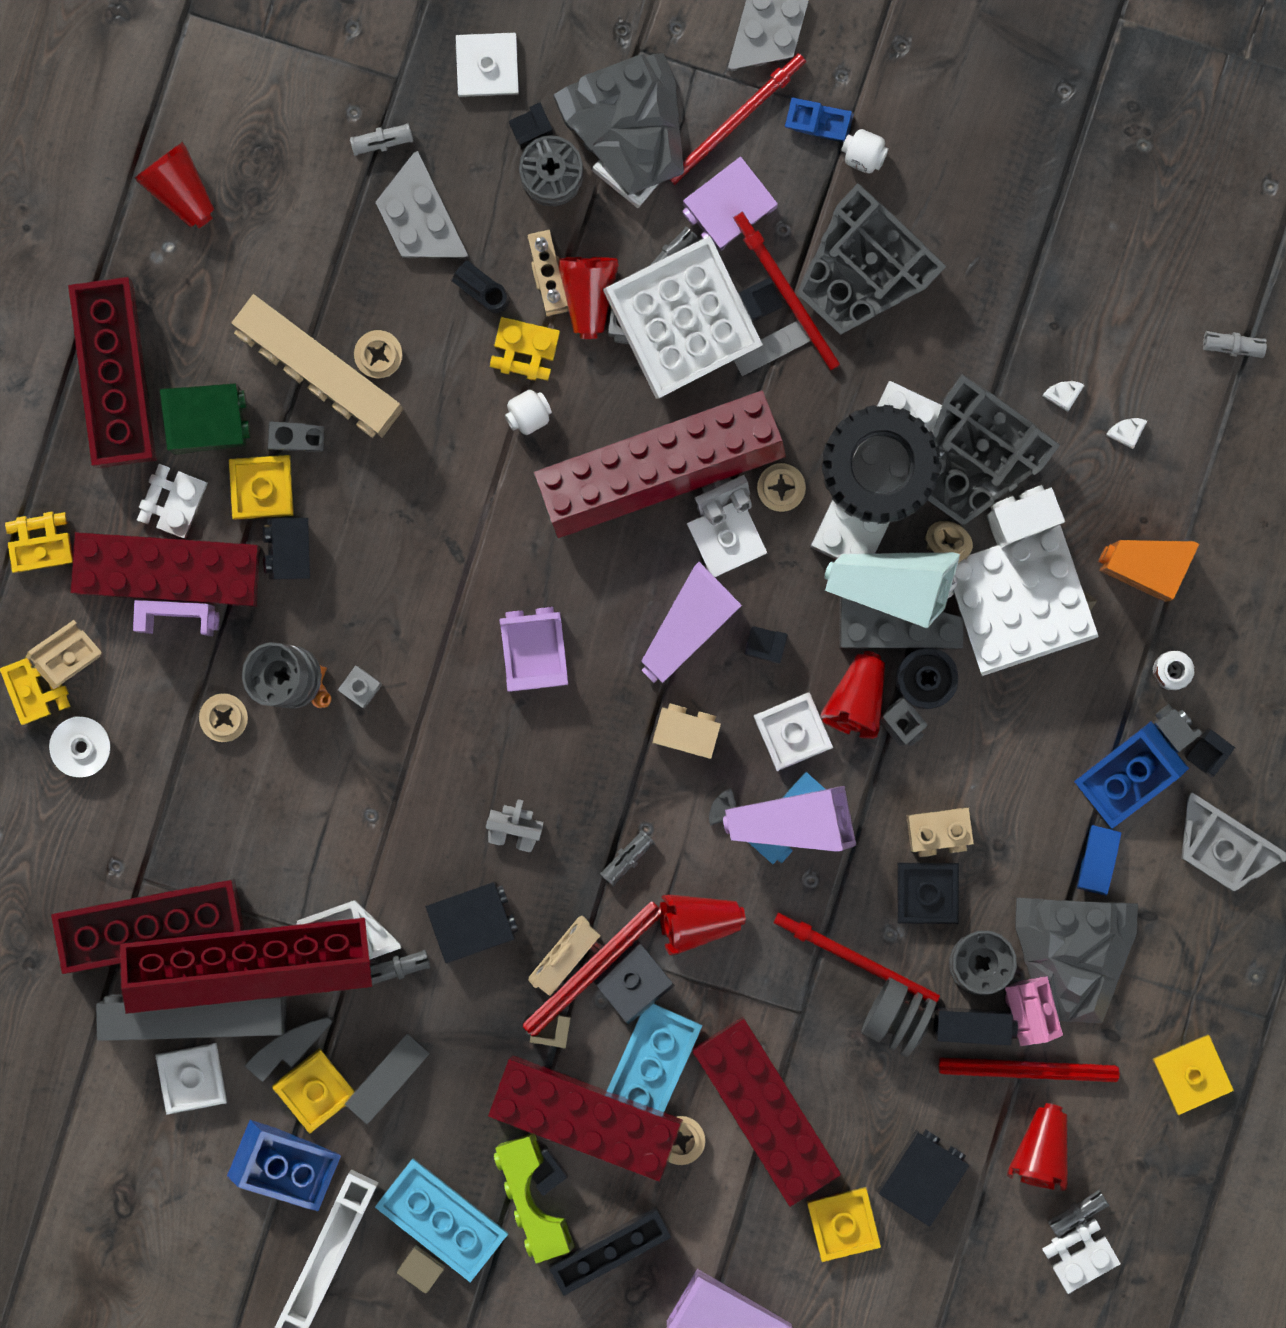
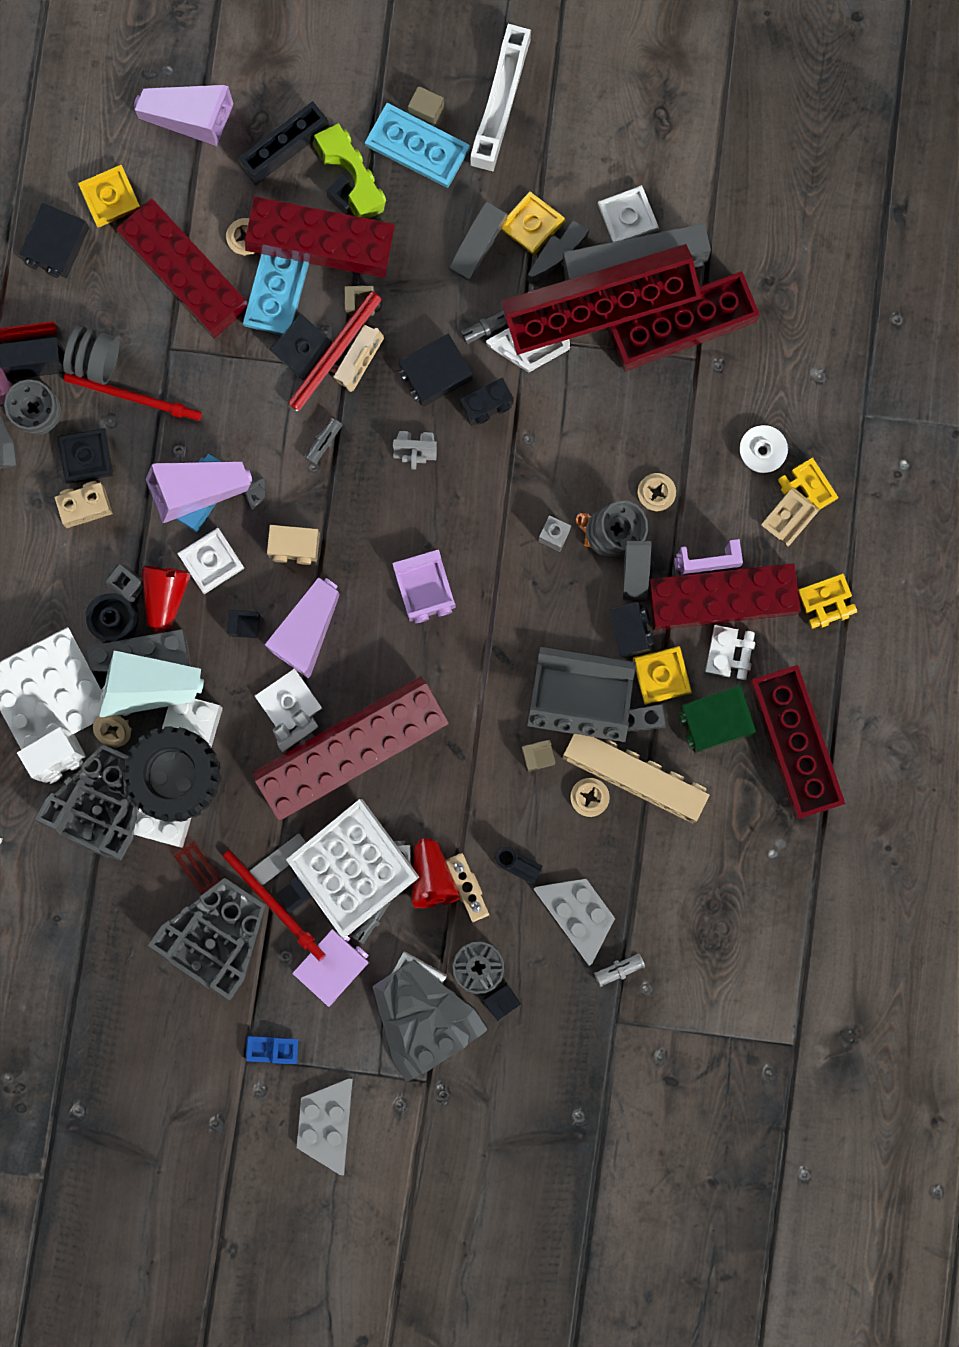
camera: 175 degrees right, 5 degrees down
(178, 186) = (774, 901): red cone -> none
(267, 617) = (636, 570): none -> dark grey slope
(283, 1166) = (546, 162): blue slope -> none
(364, 476) = (582, 694): none -> dark grey panel
(413, 869) = (486, 402): none -> black brick
(431, 416) = (538, 755): none -> dark tan panel
(487, 64) = (546, 1046): white plate -> none
(526, 340) = (474, 830): yellow plate -> none
(528, 412) = (462, 772): white head -> none
(697, 921) = (259, 400): red cone -> none
(770, 478) = (246, 759): tan gear -> none
(779, 78) = (309, 1077): red bar -> none
(859, 355) = (186, 851): none -> clear red tile
(865, 151) = (230, 1030): white head -> none
(1063, 394) = (40, 865): white tile -> none

